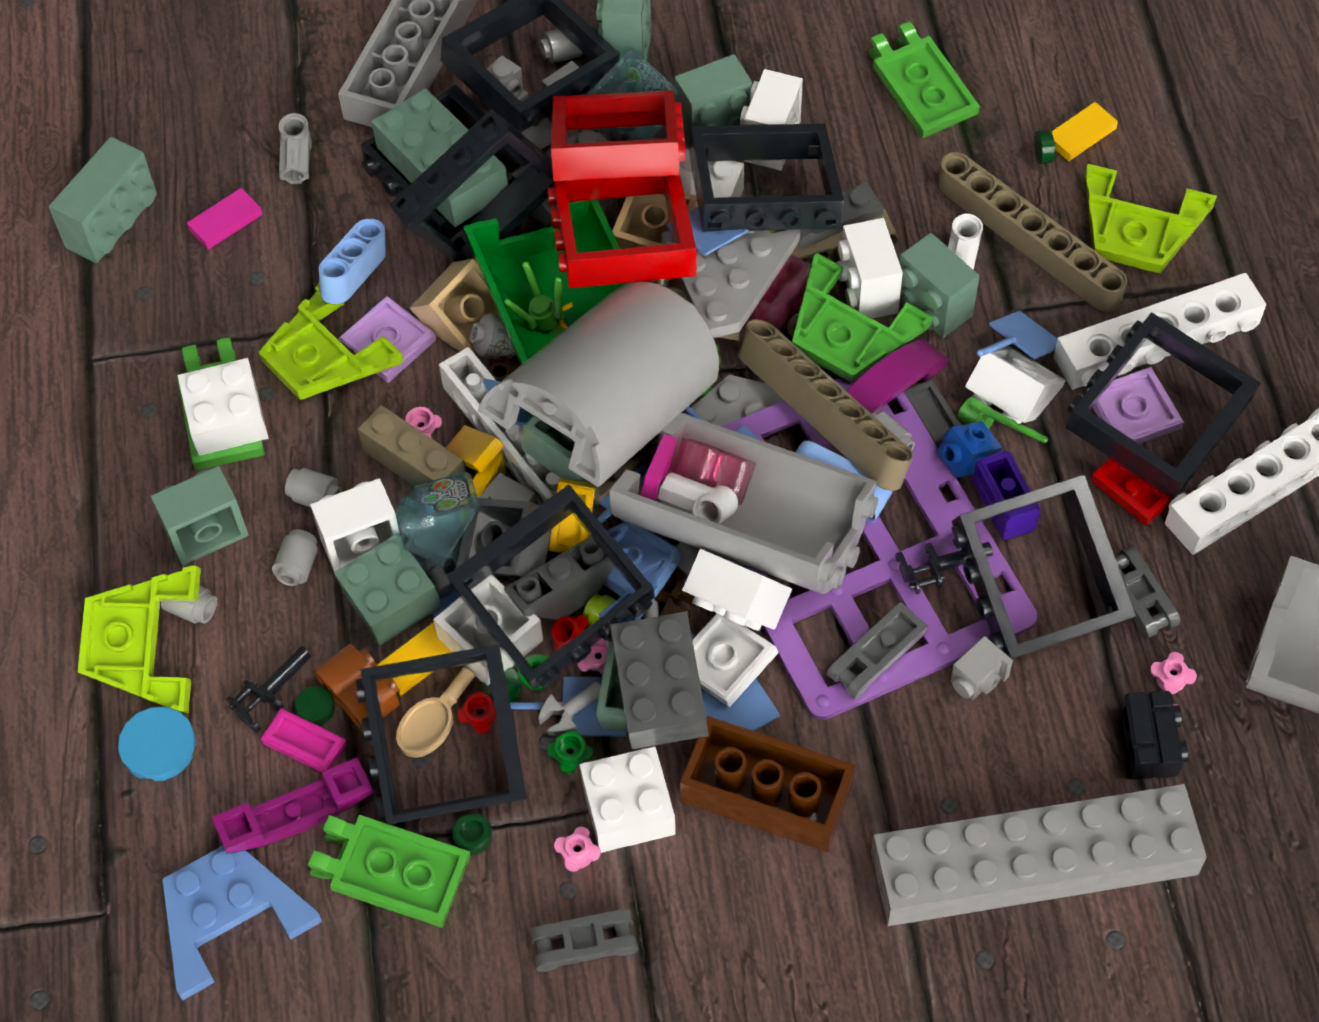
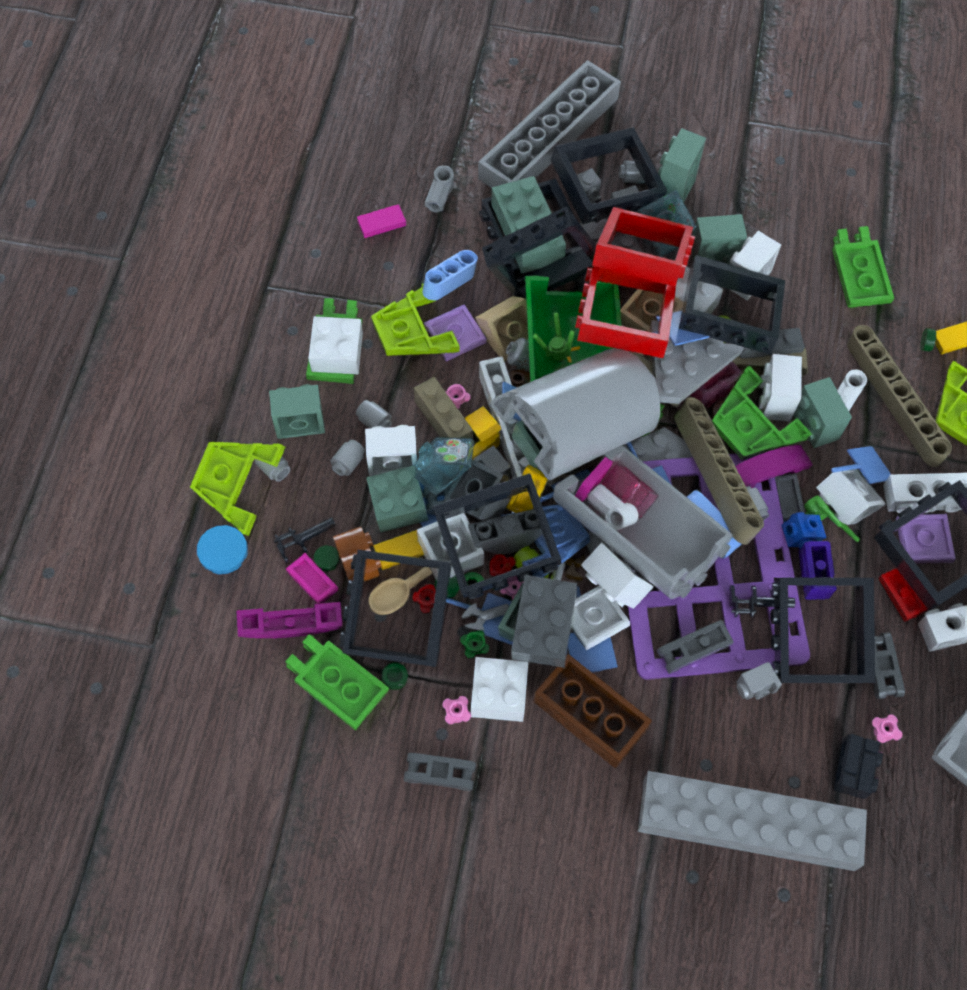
camera: 15 degrees right, 5 degrees up
(103, 200) = (309, 186): sand green brick -> none
(215, 897) = (223, 661): medium blue wing -> none

